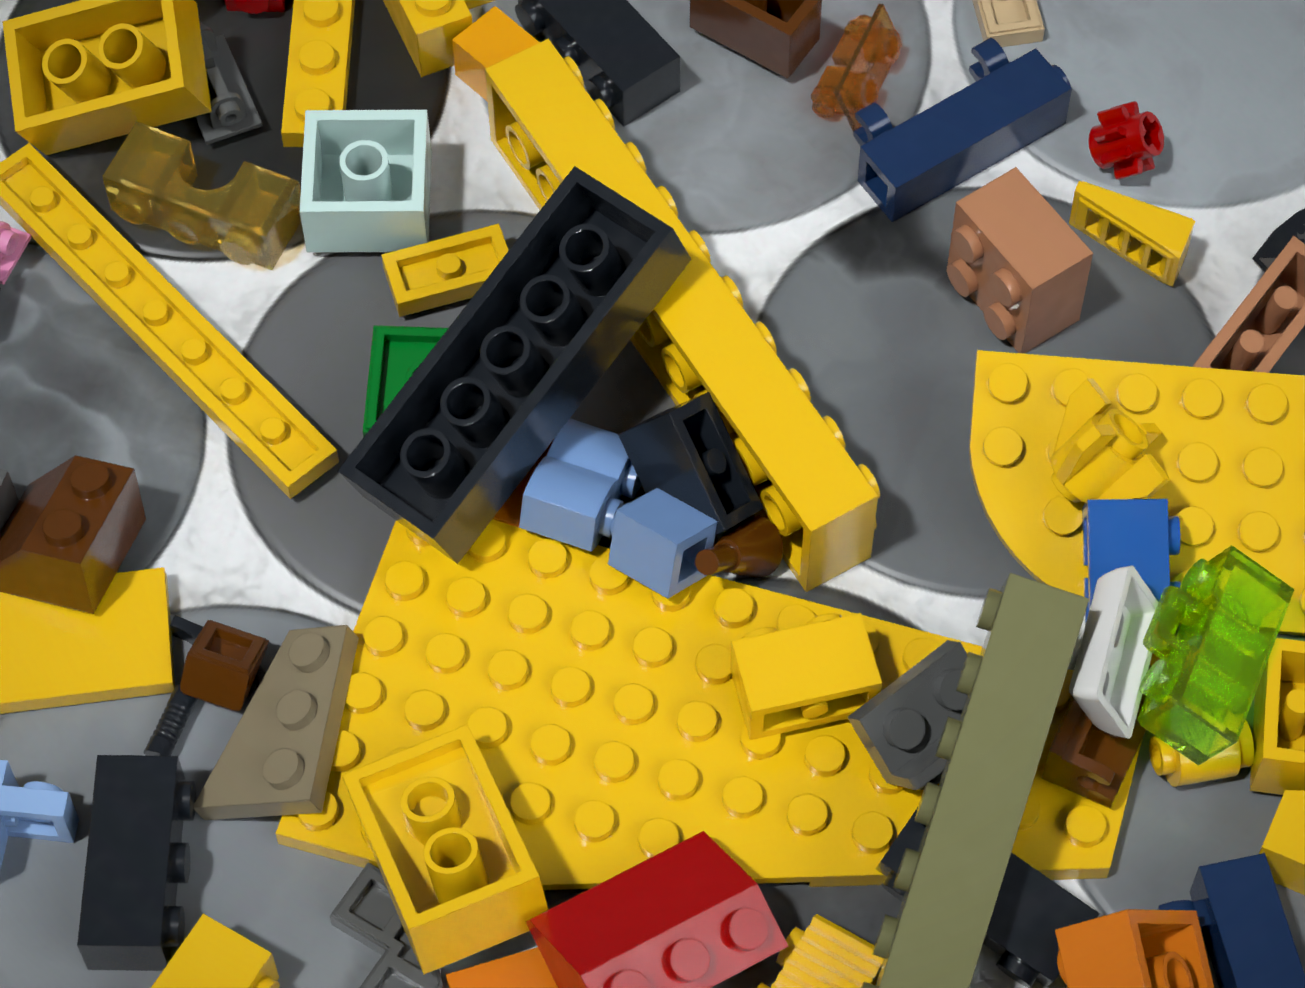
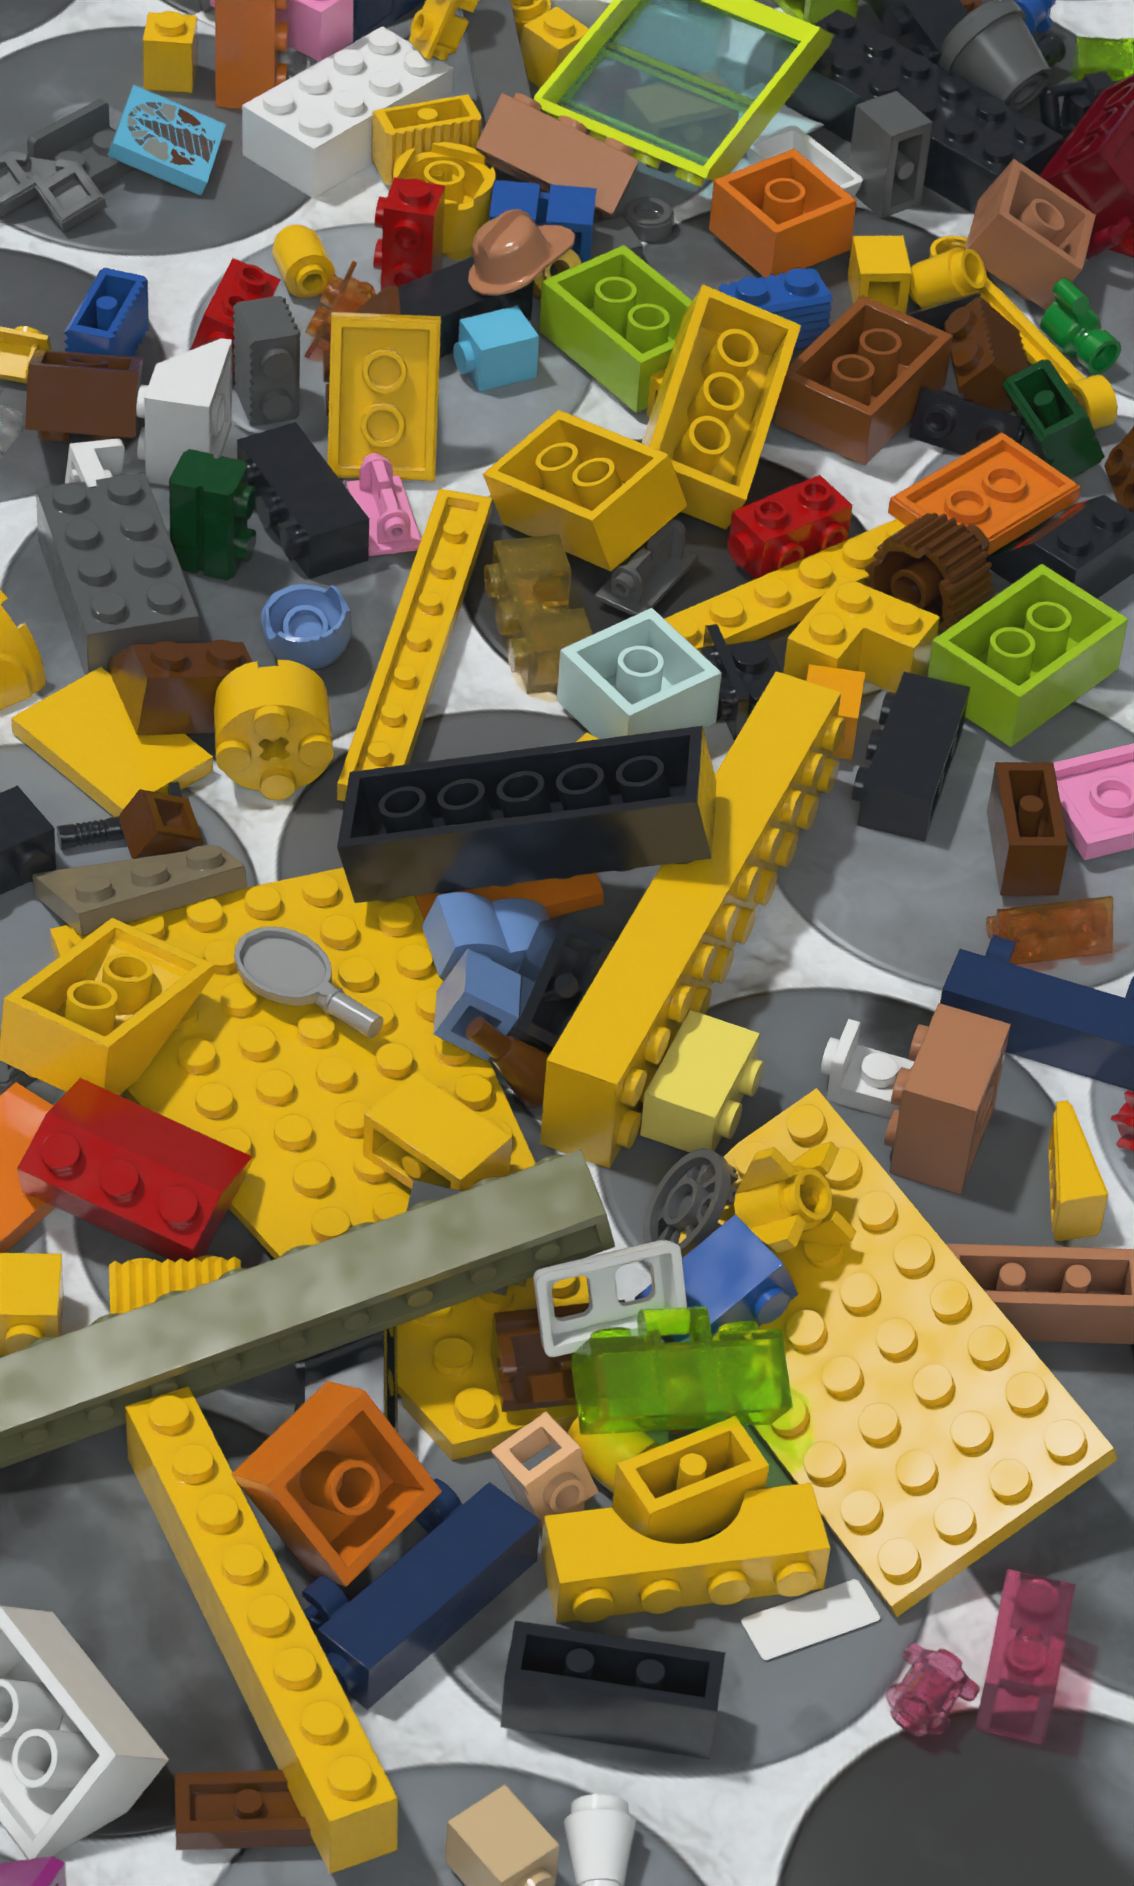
camera: 50 degrees right, 15 degrees down
(69, 388) = (307, 625): none -> medium blue hair
(193, 496) = (273, 727): none -> yellow brick
(403, 85) = (744, 675): none -> black bracket
(511, 663) = (298, 973): none -> light grey piece
(871, 422) = (701, 1084): none -> light yellow brick
(918, 303) = (859, 1074): none -> white bracket
(994, 524) = (694, 1202): none -> dark grey wheel
(1208, 814) = (555, 1484): none -> light nougat brick

